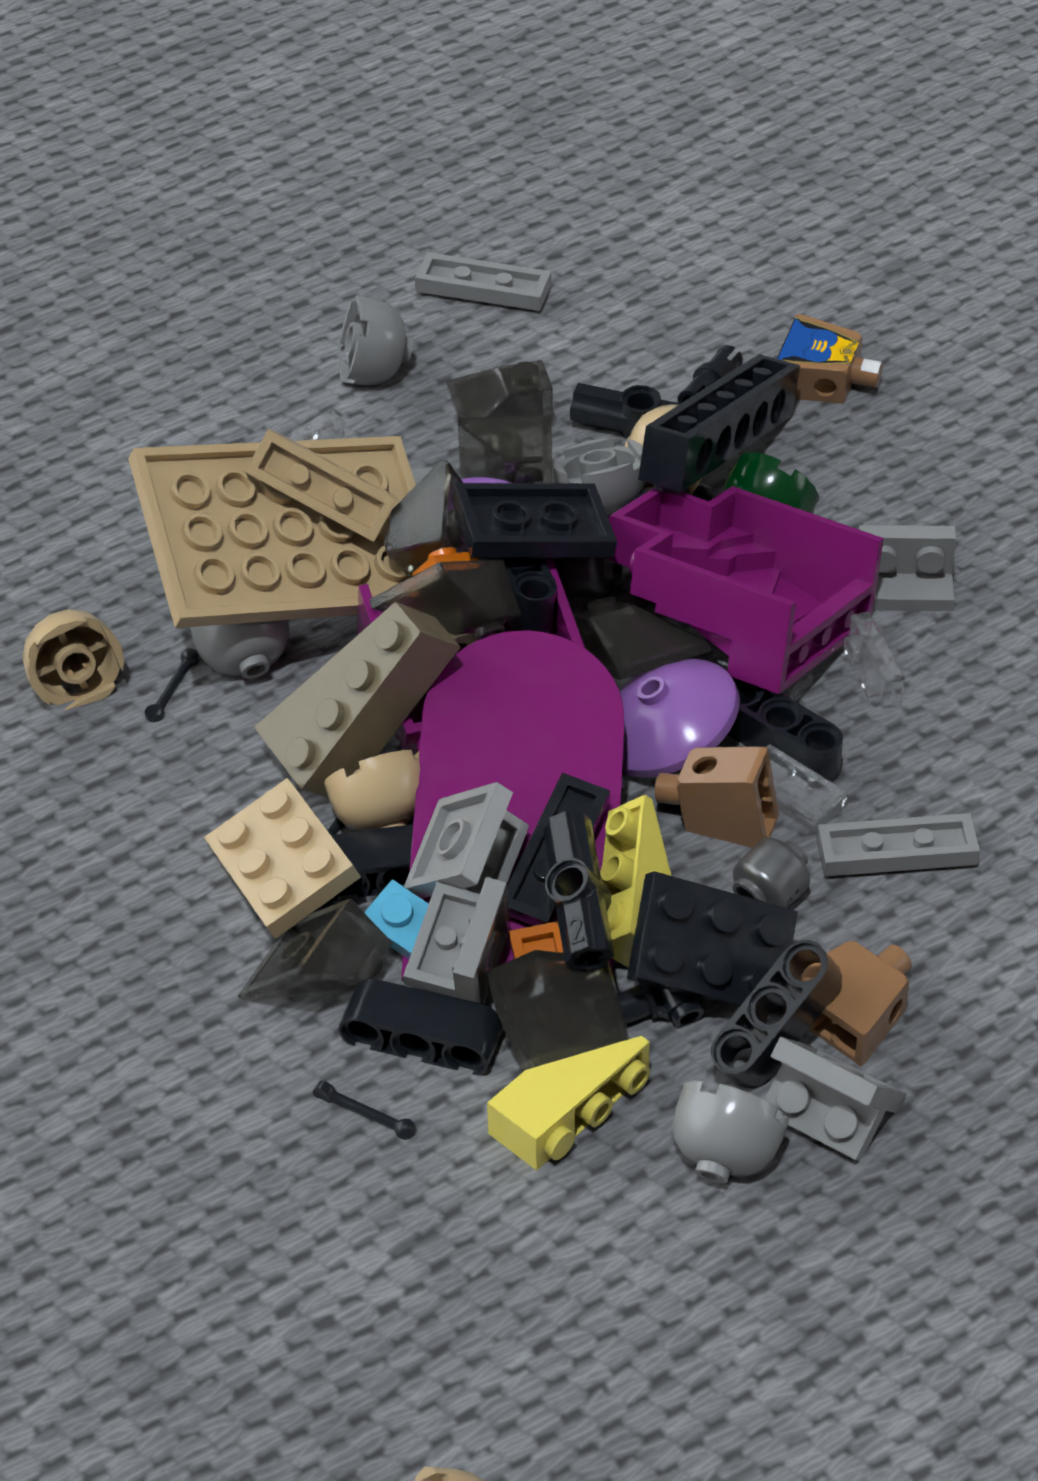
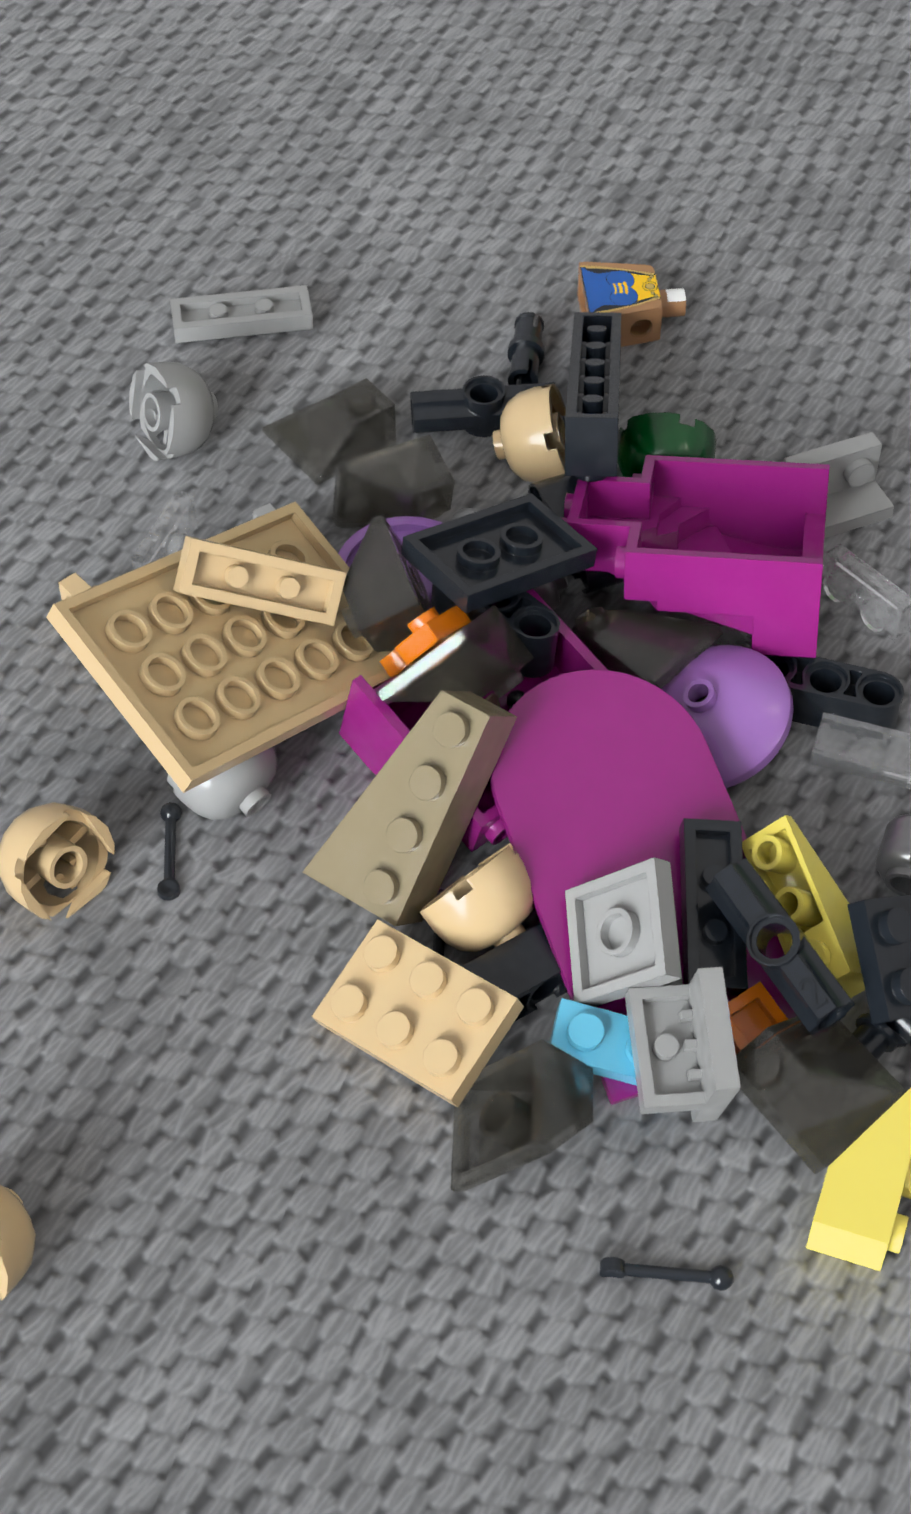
camera: 25 degrees left, 5 degrees up
(421, 1024) = (673, 1150): black beam -> none
(608, 466) = (495, 473): light grey cylinder -> none
(724, 793) = (822, 780): medium nougat torso -> none

